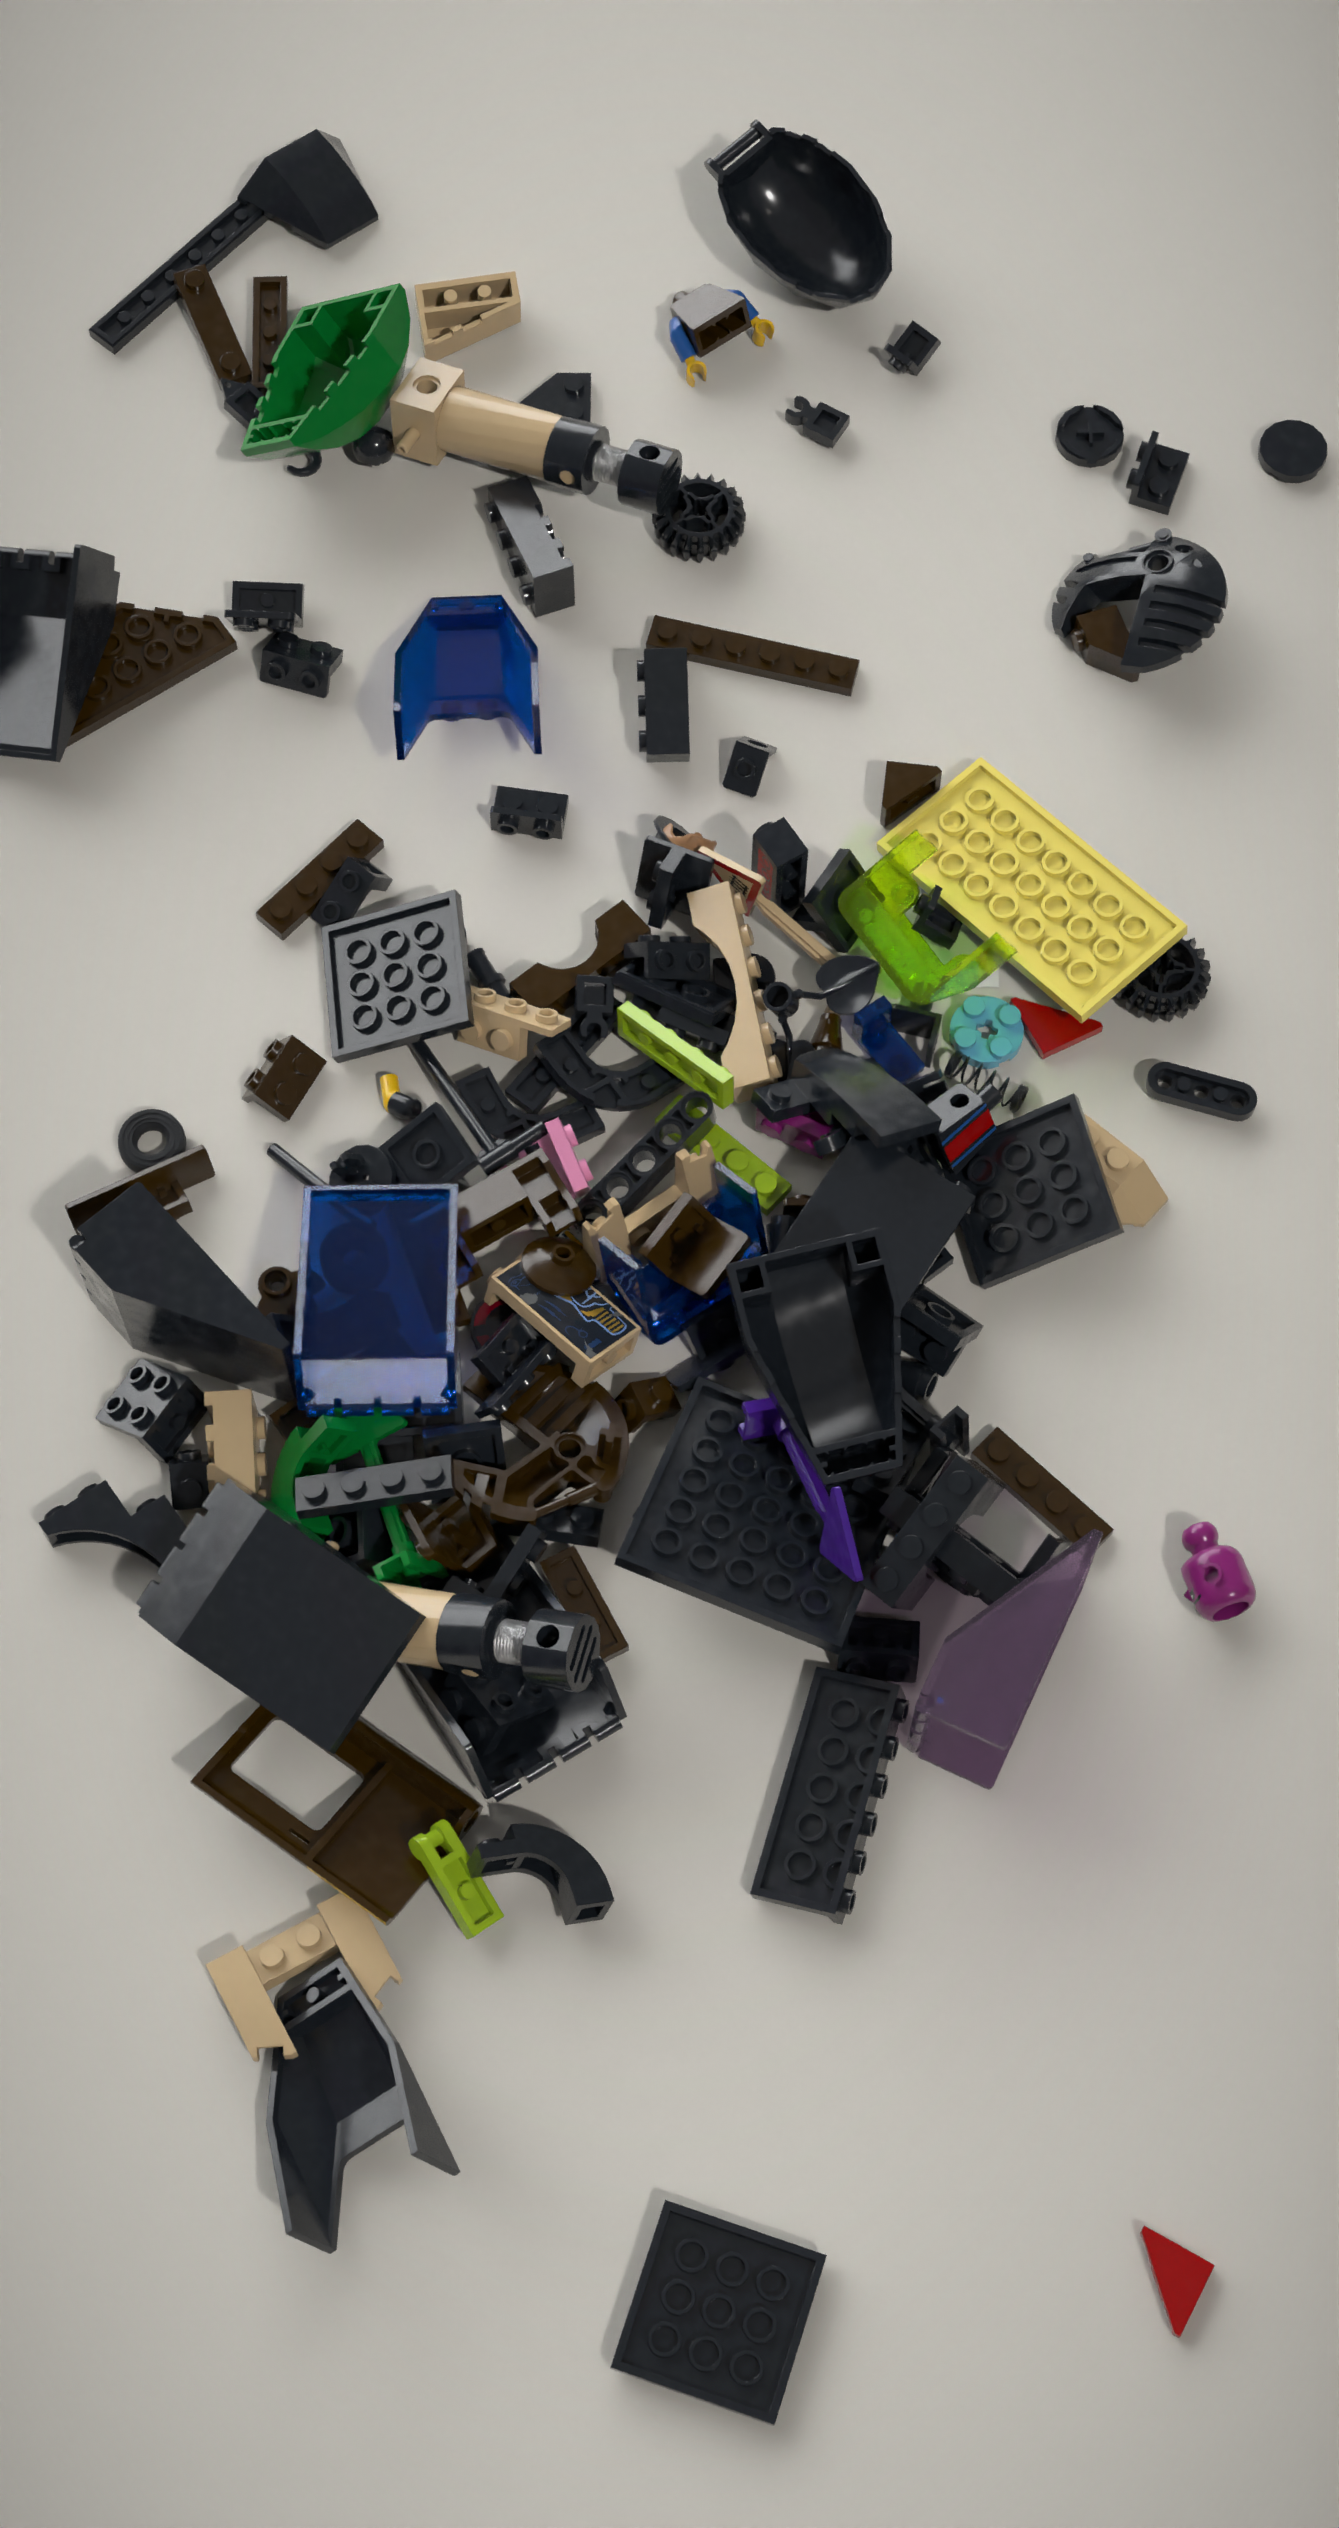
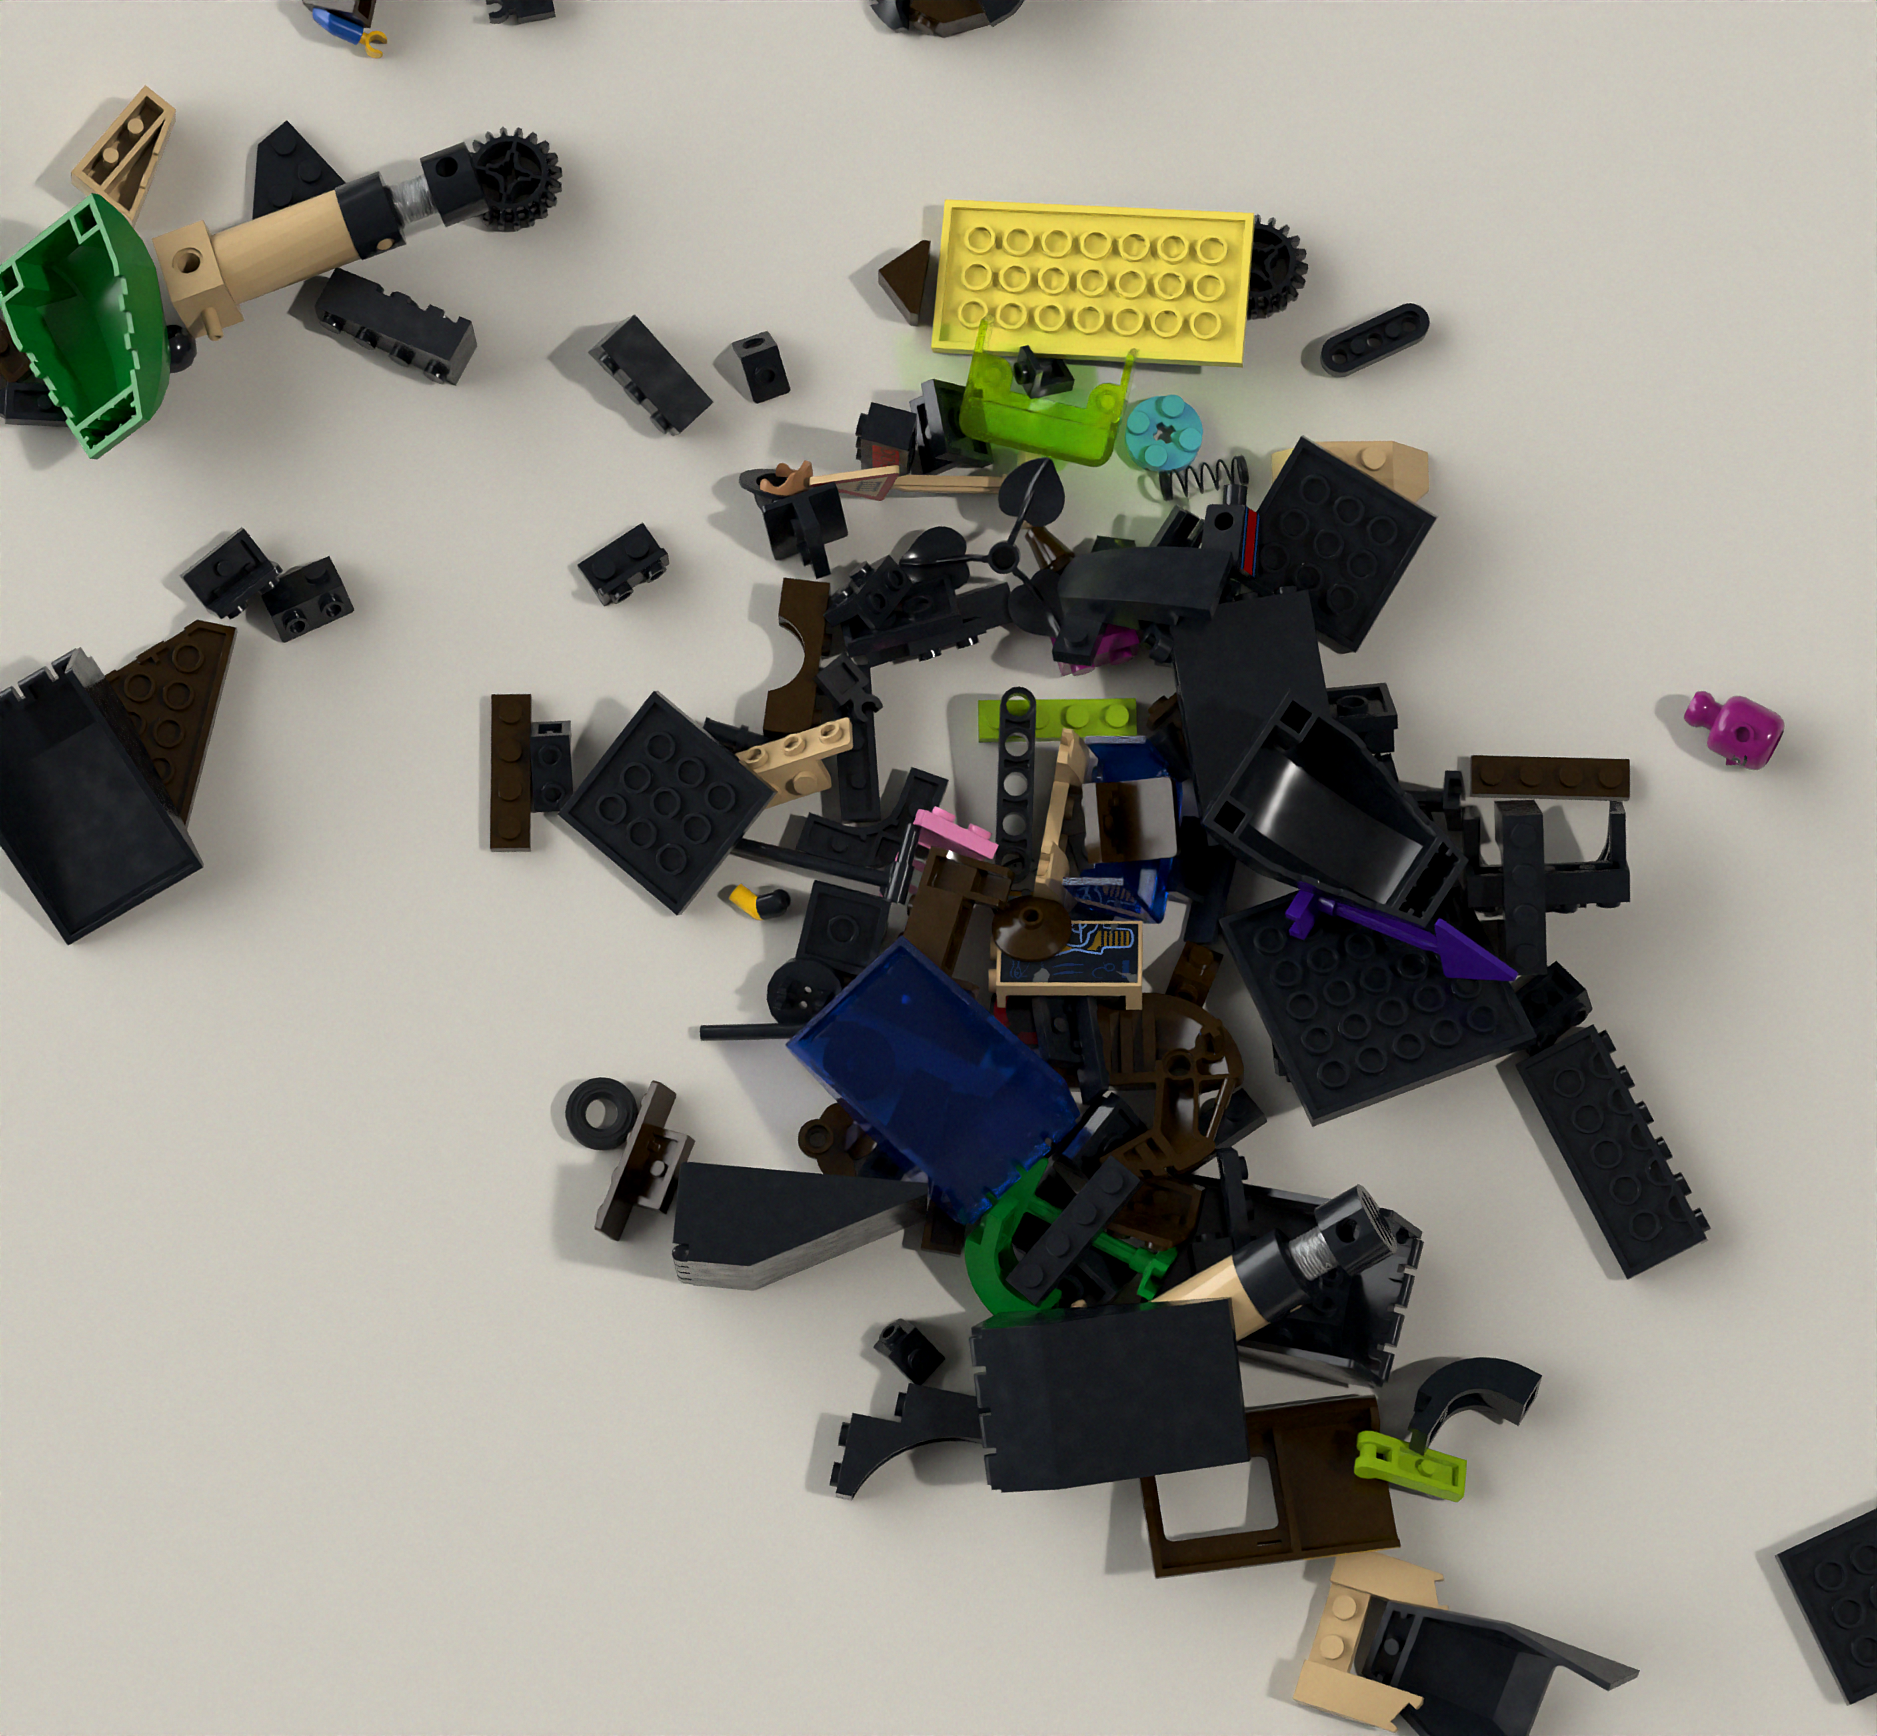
camera: 45 degrees left, 10 degrees up
(155, 1408) = (822, 1322): black bracket -> none
(235, 1439) = (931, 1305): tan wedge -> none
(284, 1077) = (652, 966): dark brown bracket -> none
(466, 663) = (456, 477): clear blue windscreen -> none
(579, 1594) = (1296, 1172): dark brown plate -> none
(599, 1086) = (924, 747): black plate -> none
(675, 1054) = (956, 674): lime plate -> none
(748, 1054) = (1012, 625): tan arch -> none
(756, 655) = (670, 266): dark brown plate -> none
(883, 1042) = (1101, 515): clear blue bracket -> none
(920, 1022) = (1111, 473): black bracket -> none
(994, 1669) = (1667, 955): clear purple windscreen -> none
(1052, 1028) = (1208, 388): red tile -> none

